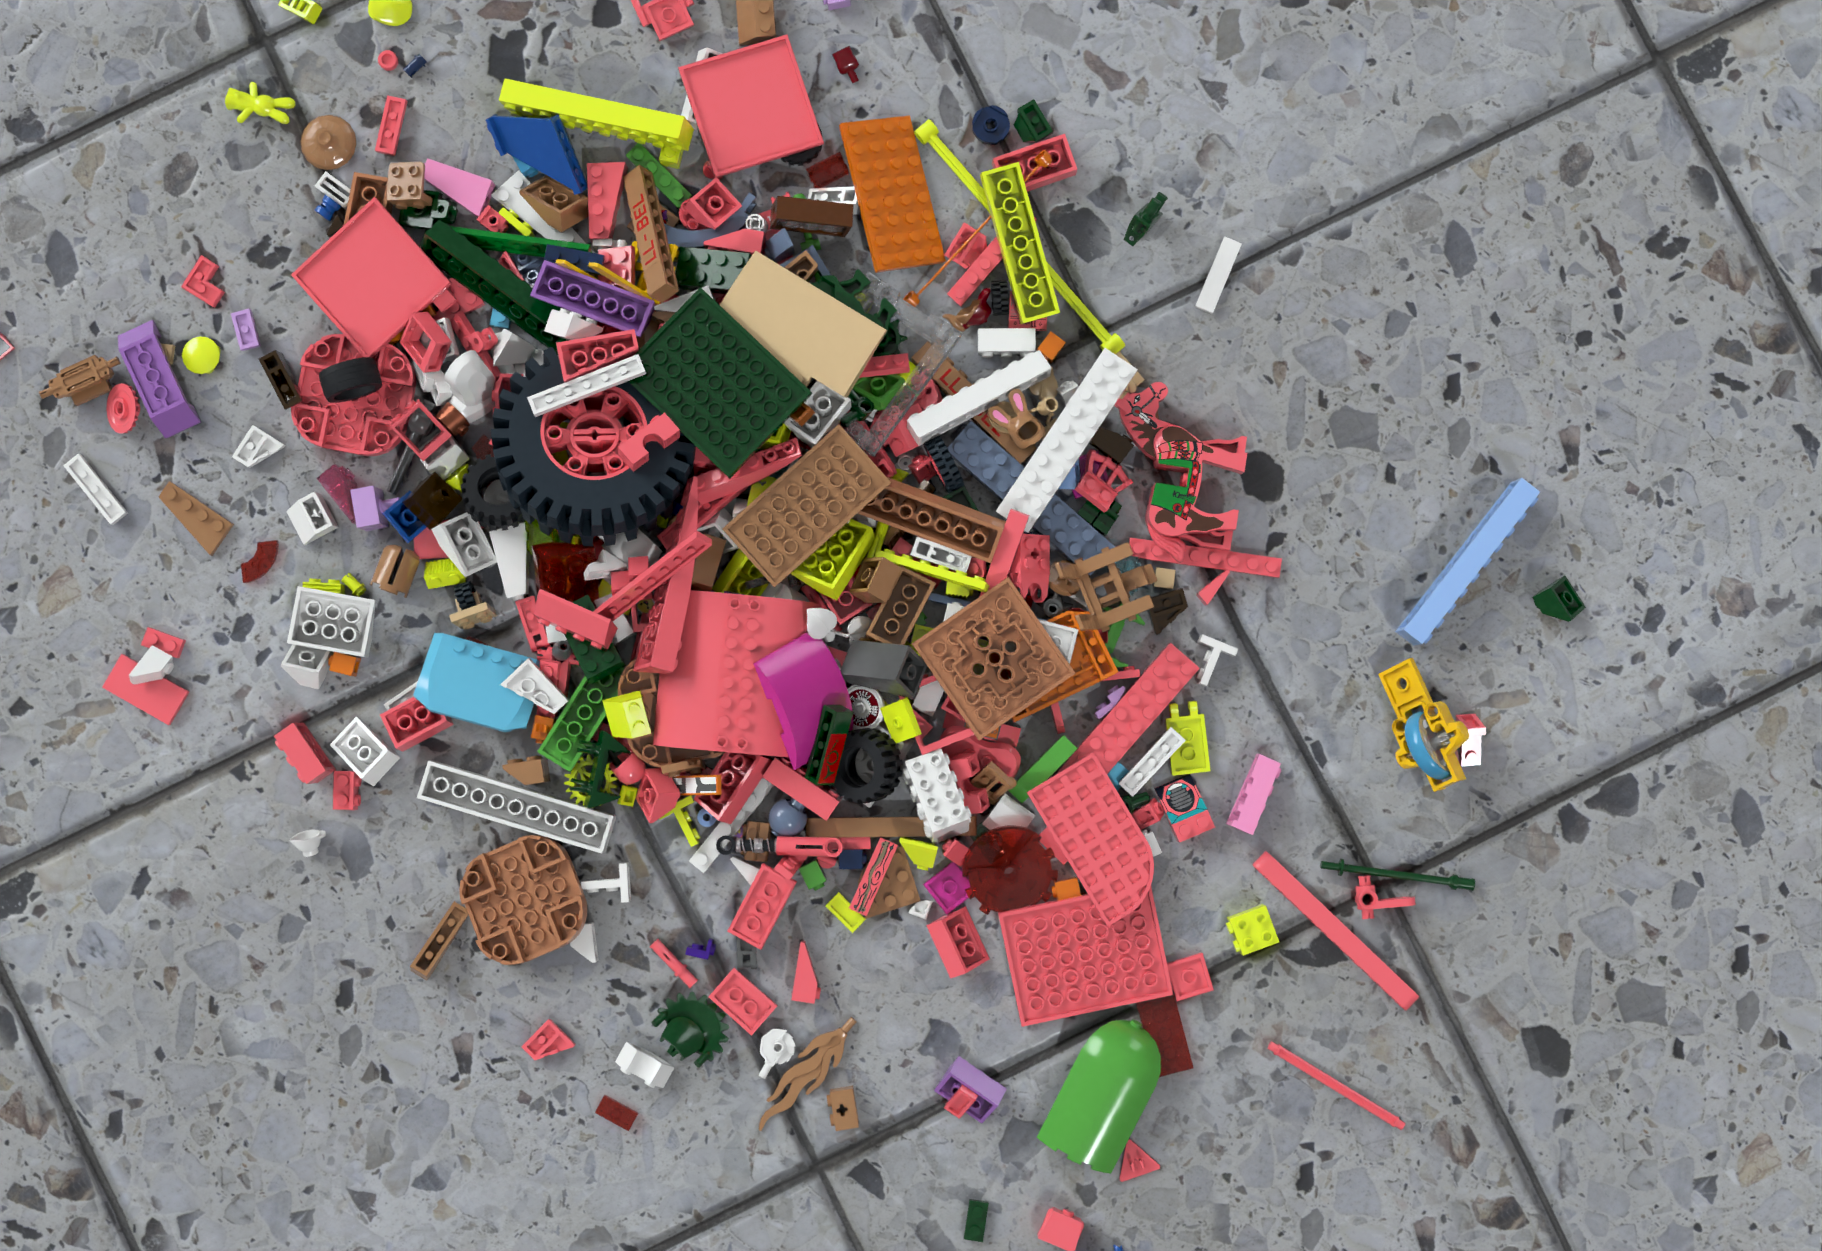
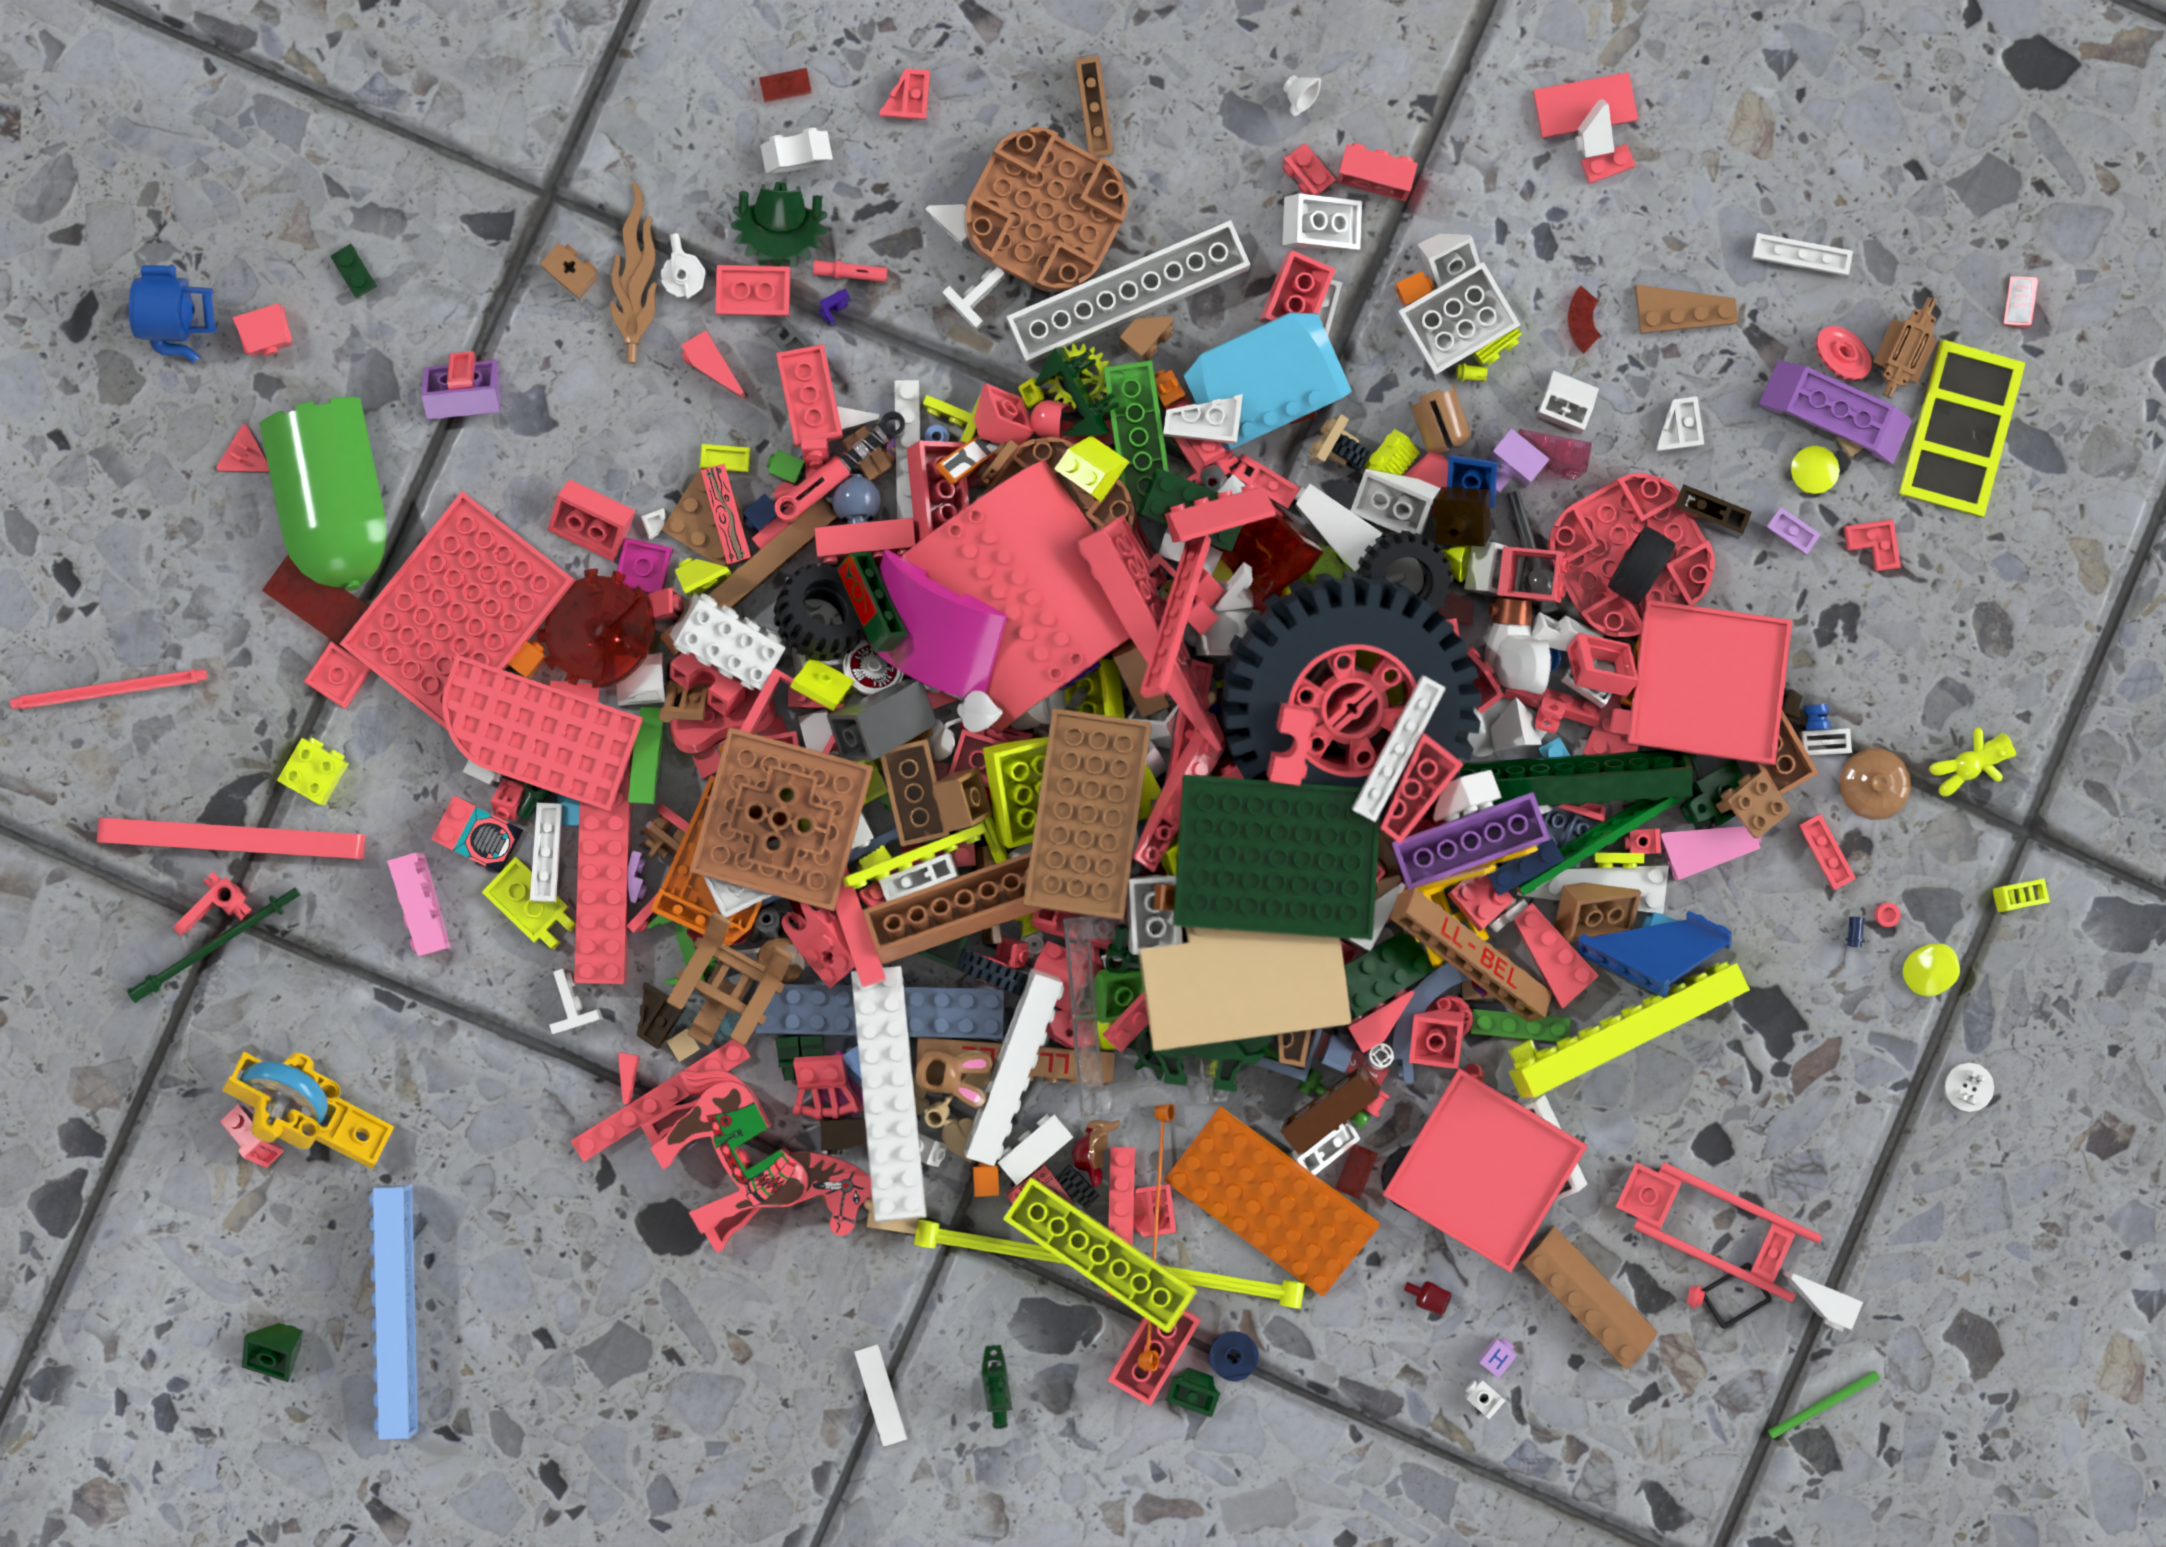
camera: 135 degrees right, 0 degrees up
(92, 306) = (1962, 428): none -> door
(1075, 719) = (660, 841): none -> medium nougat hips

